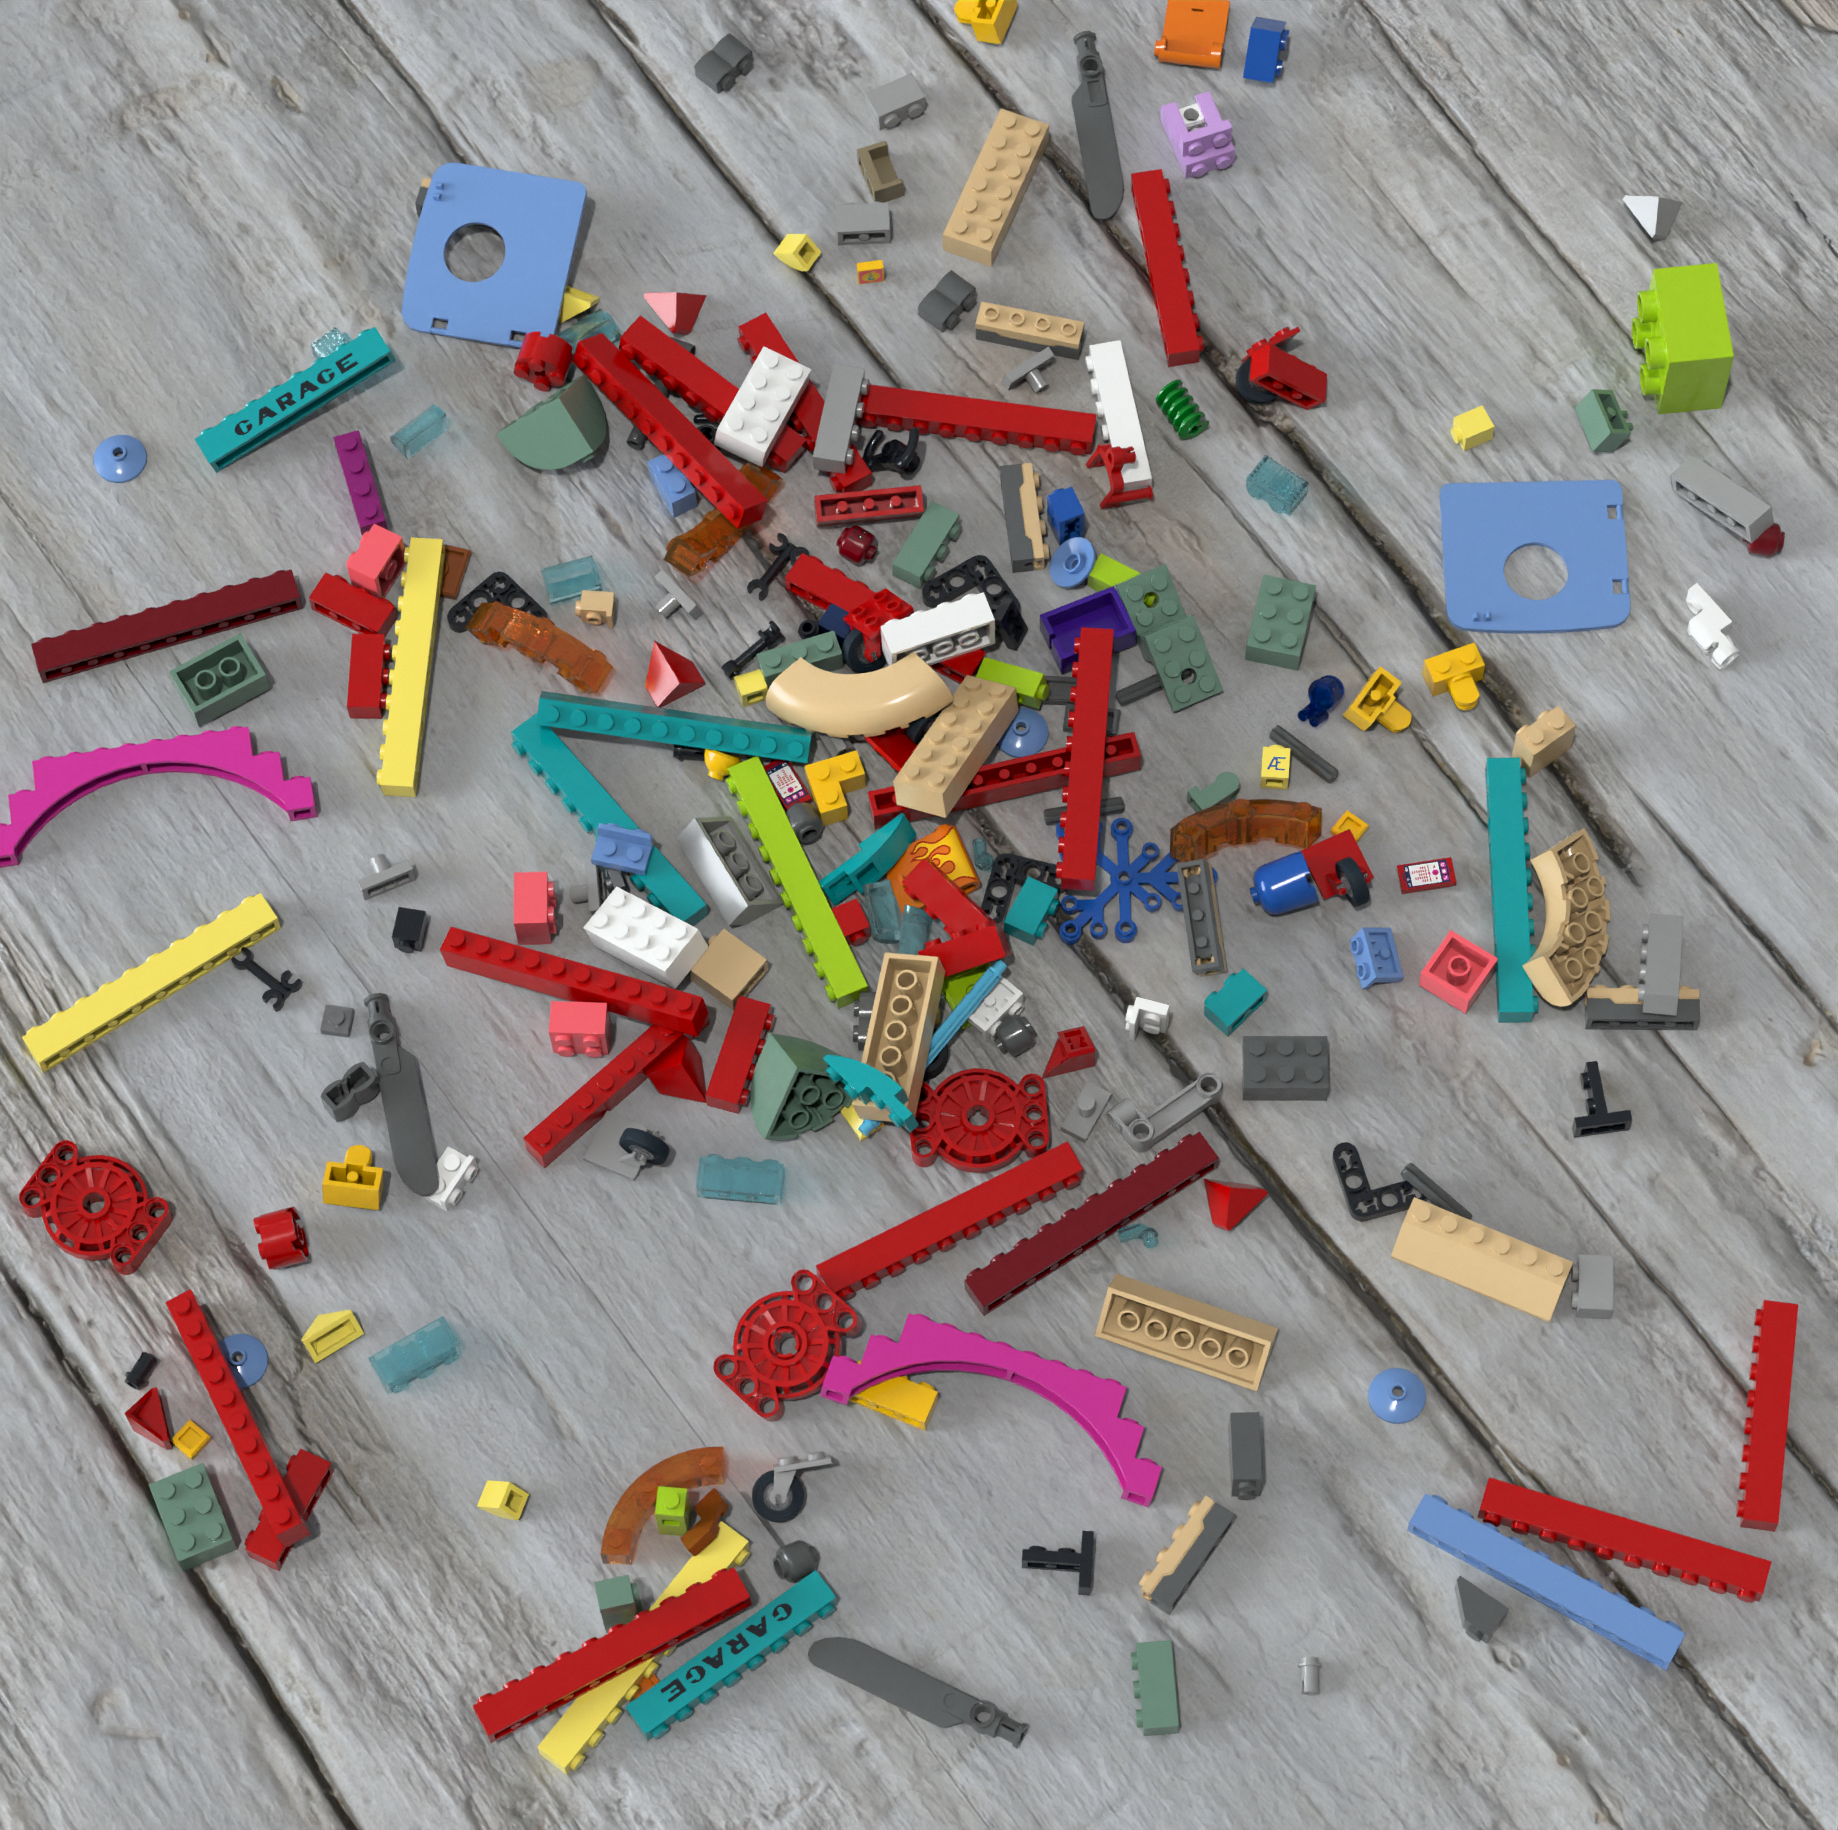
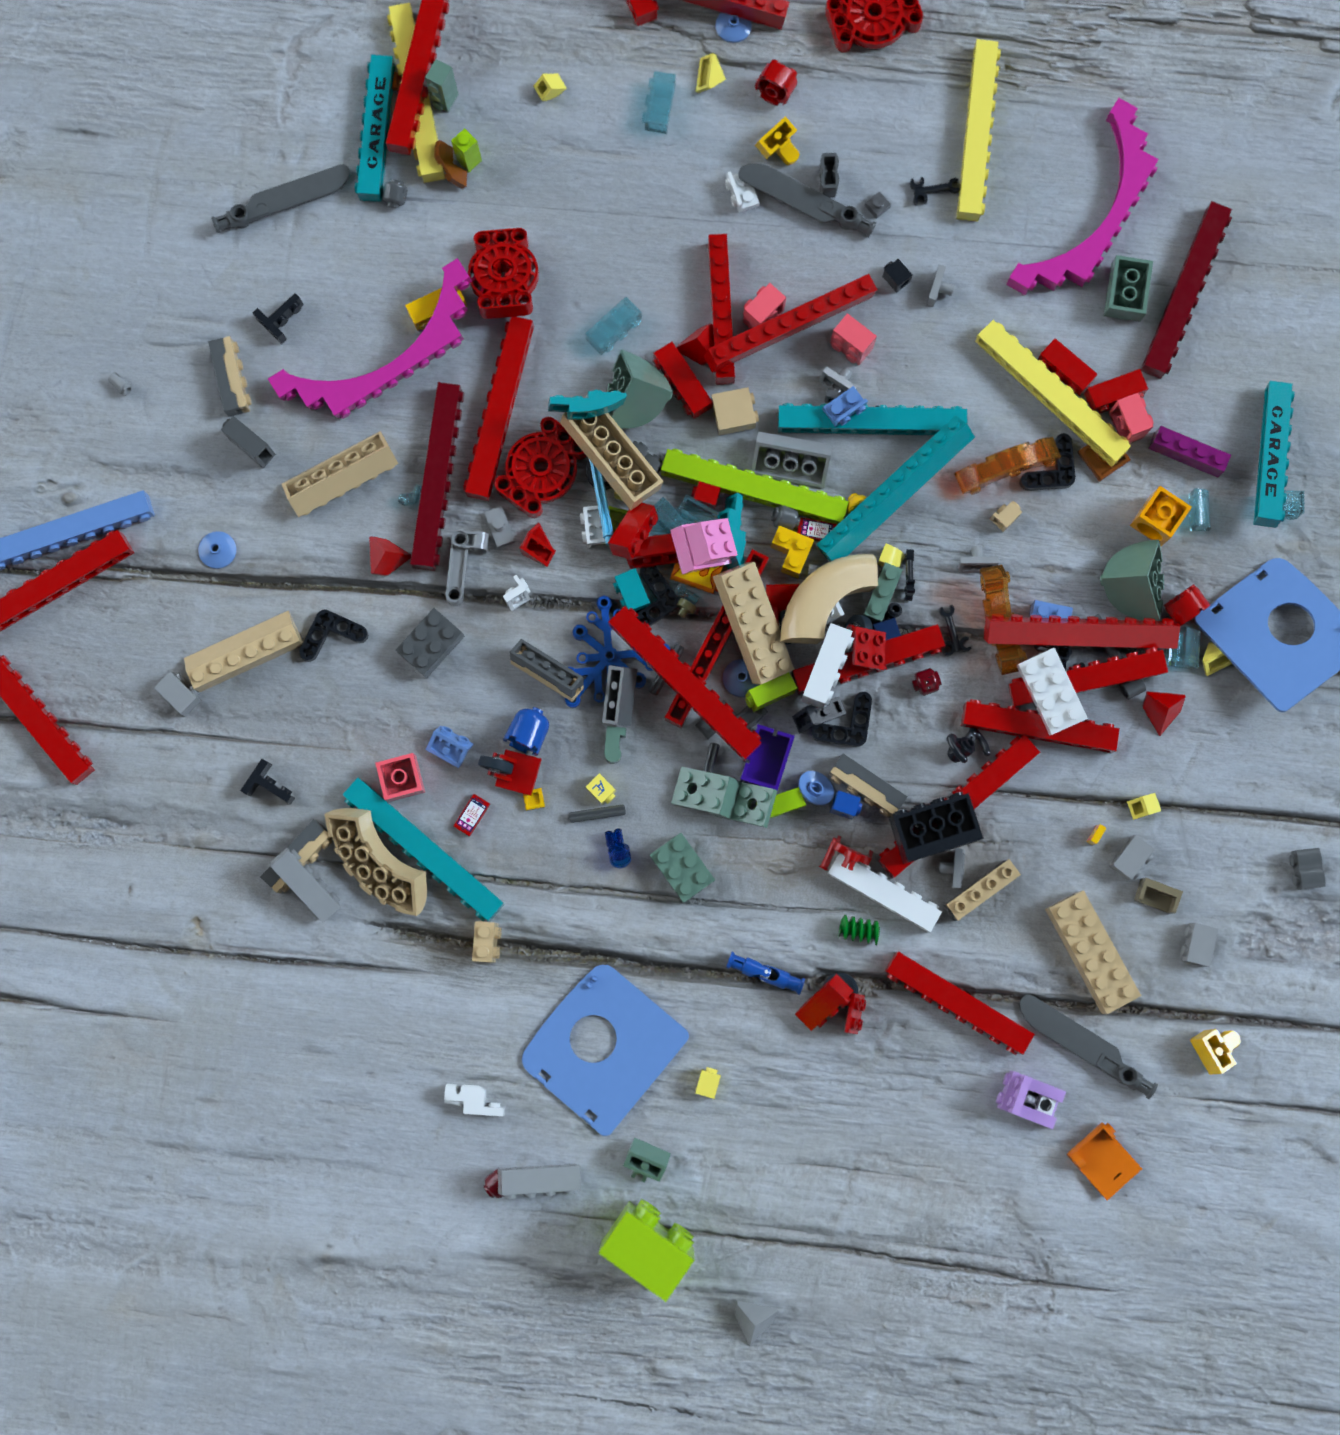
camera: 130 degrees right, 15 degrees up
(124, 467) = (1310, 351): medium blue dish -> none
(466, 453) = (1160, 515): none -> light orange brick
(570, 578) = (1036, 517): clear light blue brick -> none
(625, 1146) = (682, 286): light grey plate -> none
(638, 1503) = (489, 166): clear orange brick -> none
(646, 937) = (785, 380): white brick -> none
(670, 676) = (932, 523): red slope -> none
(778, 1492) = (438, 227): plate -> none
(839, 419) = (1010, 730): light grey brick -> none
(868, 505) = (944, 706): red brick -> none
(916, 857) = (703, 545): none -> bright pink piece
(926, 545) = (894, 719): sand green brick -> none
(947, 301) = (1040, 861): dark grey brick -> none
(997, 842) = (685, 607): none -> olive tile
(1012, 403) = (945, 836): none -> black brick
(1014, 1035) = (570, 524): dark grey head -> none
(1155, 823) = (619, 695): none -> dark grey brick
(1155, 1688) = (180, 306): sand green brick -> none
(1234, 1002) = (489, 650): teal brick -> none
(1245, 823) = (583, 740): clear orange brick -> none
(1264, 47) = (1056, 1190): blue brick -> none
(1276, 486) = (767, 941): clear light blue brick -> none
(1317, 477) = (755, 969): none -> blue piece
(1377, 703) = (589, 875): yellow brick -> none
(1433, 1191) = (294, 657): dark grey axle -> none
(1456, 674) = (568, 934): yellow brick -> none
(1478, 1611) = (74, 489): dark grey slope -> none

